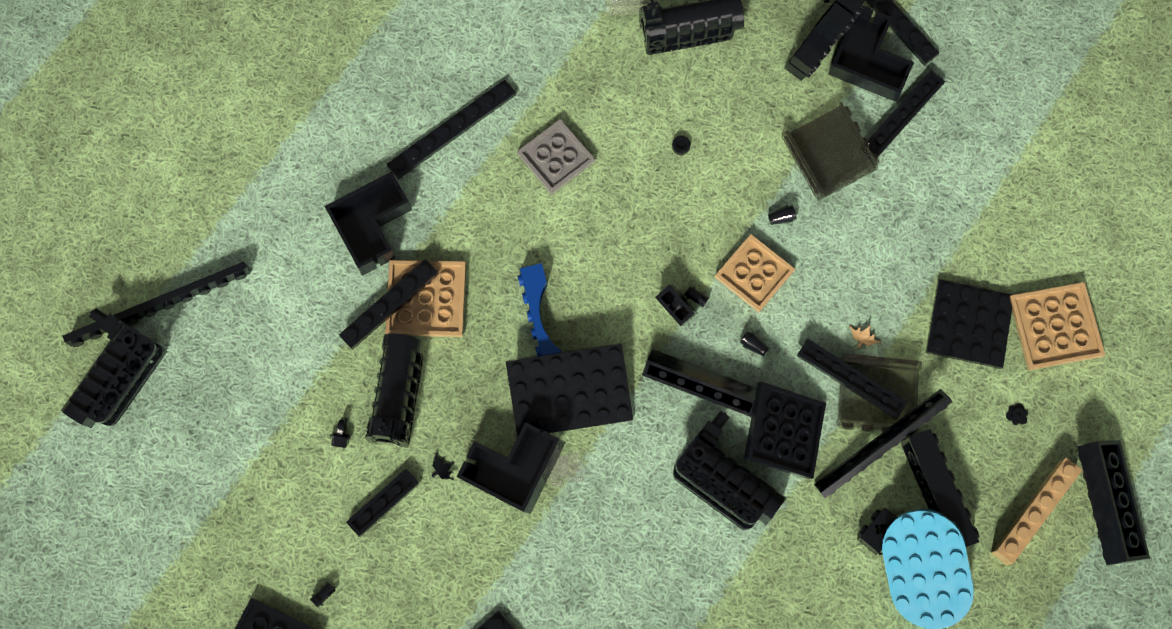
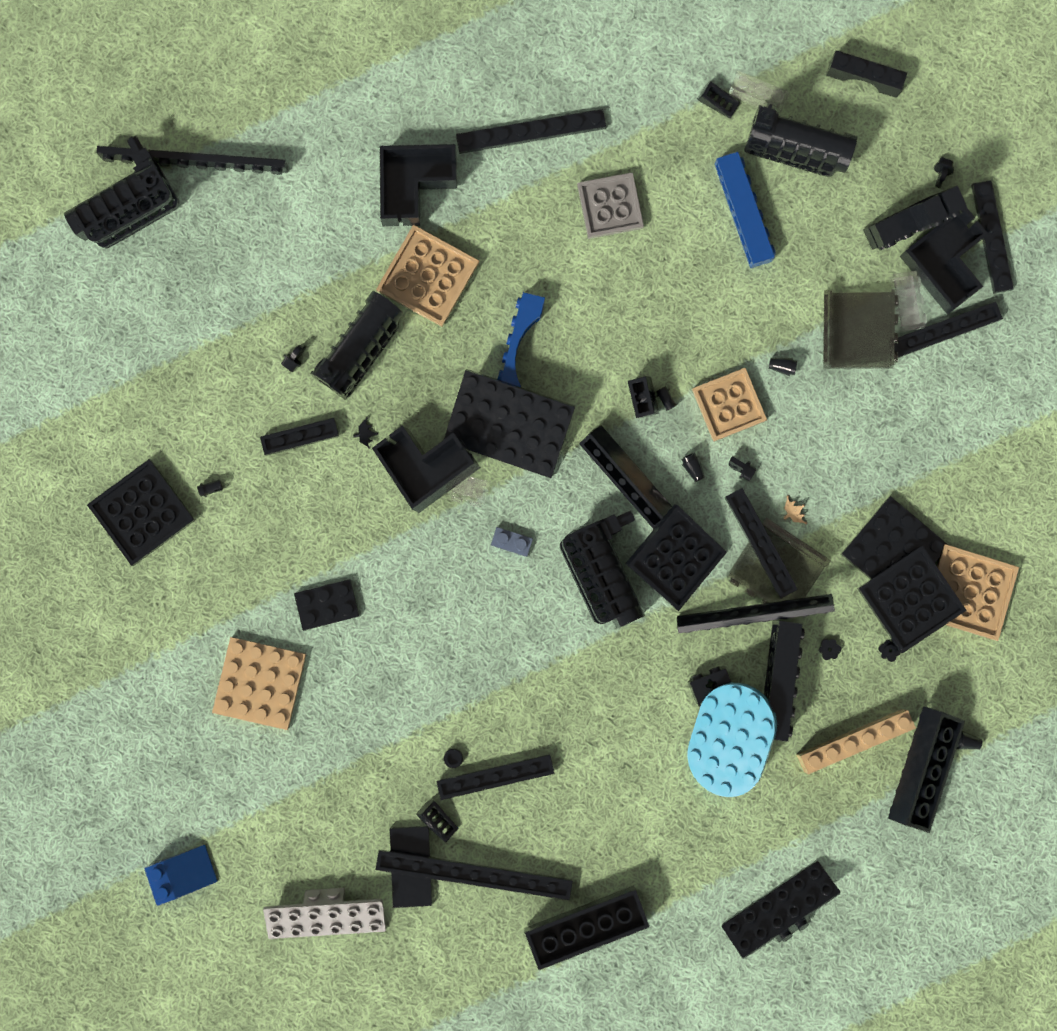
camera: 25 degrees right, 10 degrees up
(388, 304) = (392, 264): black plate -> none
(593, 28) = (708, 101): none -> black slope
(628, 496) = (511, 542): none -> sand blue plate
(675, 102) = (744, 210): none -> blue brick
(681, 145) = (728, 253): black tile -> none
(800, 322) = (746, 470): none -> black piece
(860, 106) = (910, 301): none -> clear brick
(969, 438) = (833, 653): none -> black plant
(1011, 358) = (911, 599): none -> black plate
(1134, 458) = (969, 742): none -> black cone

